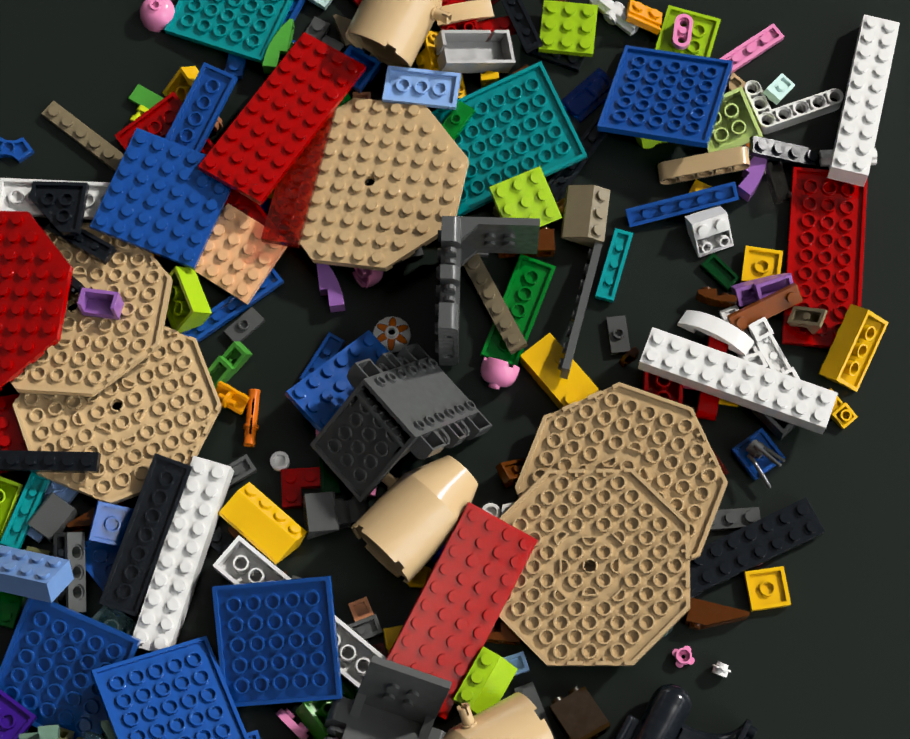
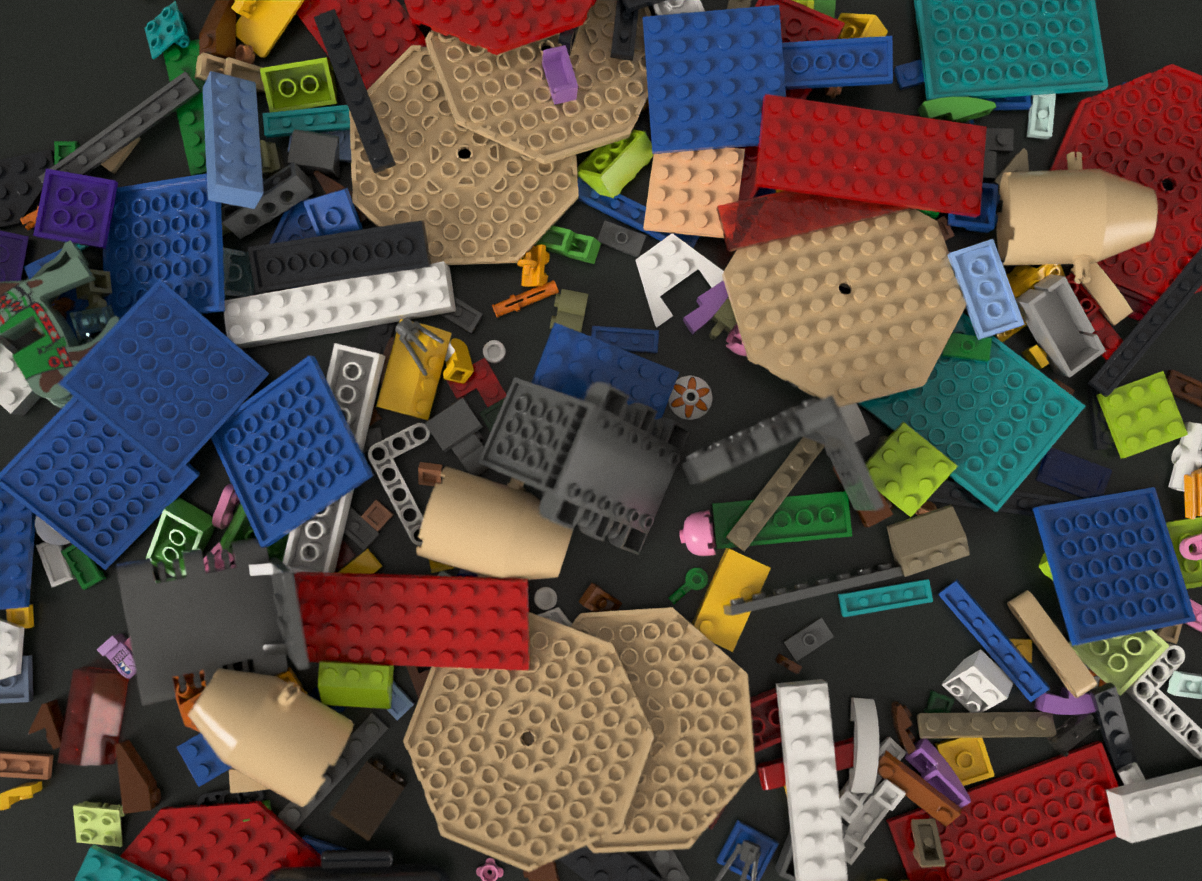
camera: 60 degrees right, 15 degrees up
(232, 506) = (410, 332): none -> dark grey plant
(272, 488) = (457, 362): none -> yellow leg
(275, 387) = (570, 309): none -> olive brick
(284, 302) = (666, 267): none -> white wing
(344, 577) = (398, 481): none -> white beam
(347, 279) = (724, 320): none -> olive brick
(350, 553) = (430, 474): none -> nougat plate
(532, 395) = (695, 579): none -> green plate
(742, 239) = (986, 725): none -> dark tan plate

